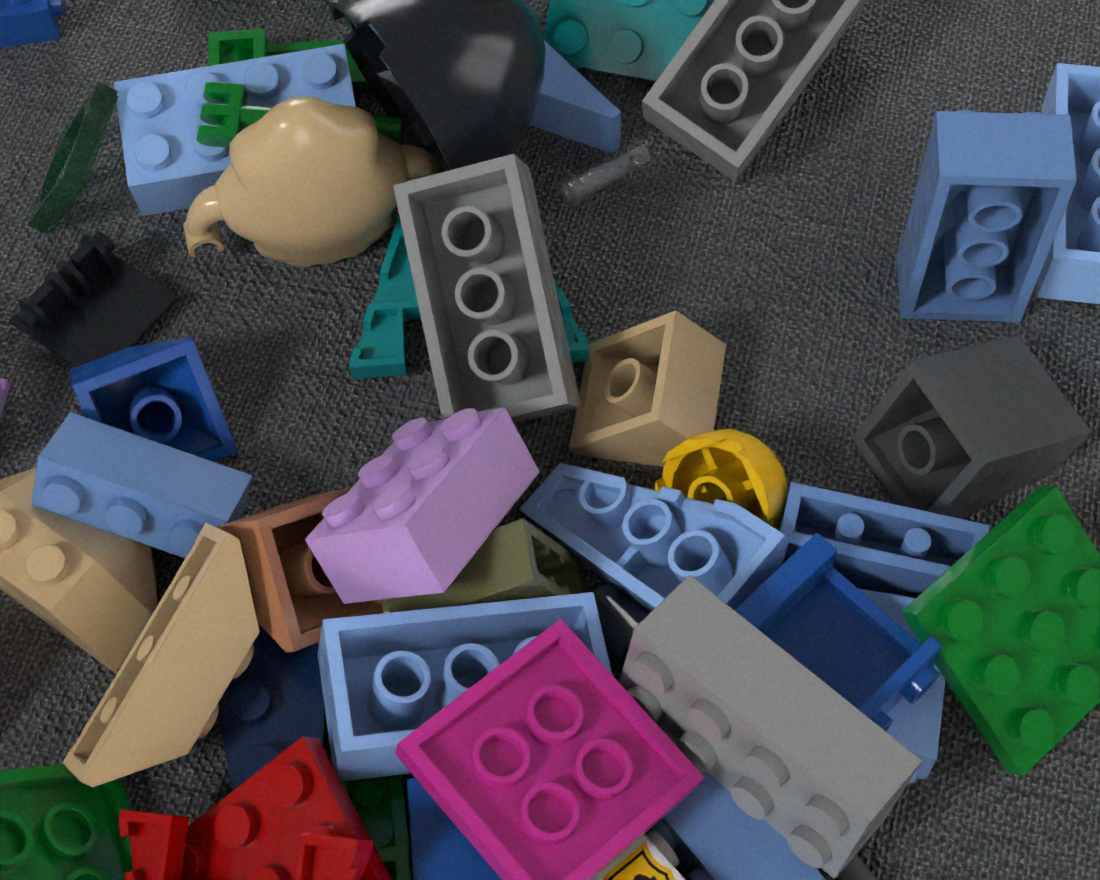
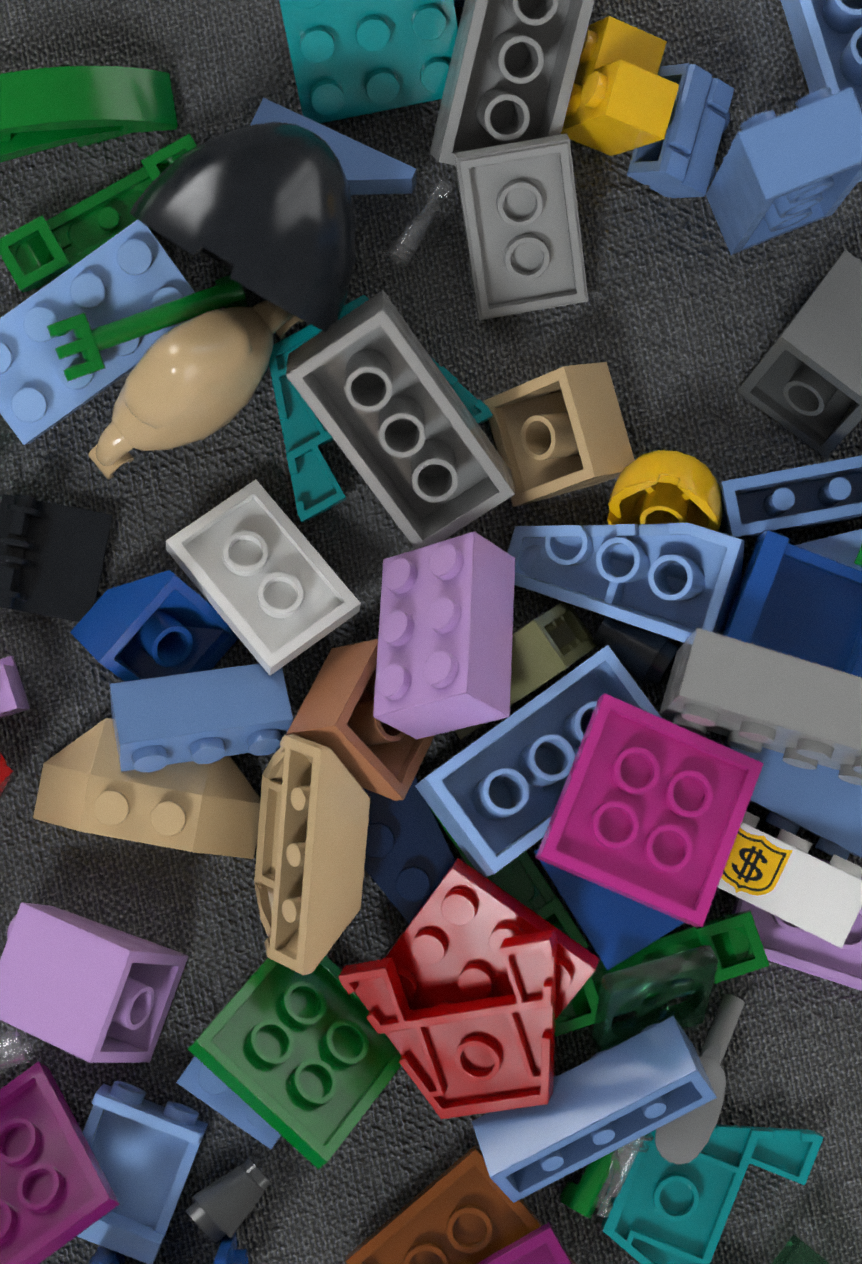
camera: 30 degrees left, 25 degrees up
(281, 397) = (262, 576): none -> white plate
(697, 195) = (522, 226): none -> light grey tile
(839, 120) = (617, 90): none -> yellow brick
(881, 182) = (686, 157): none -> medium blue brick

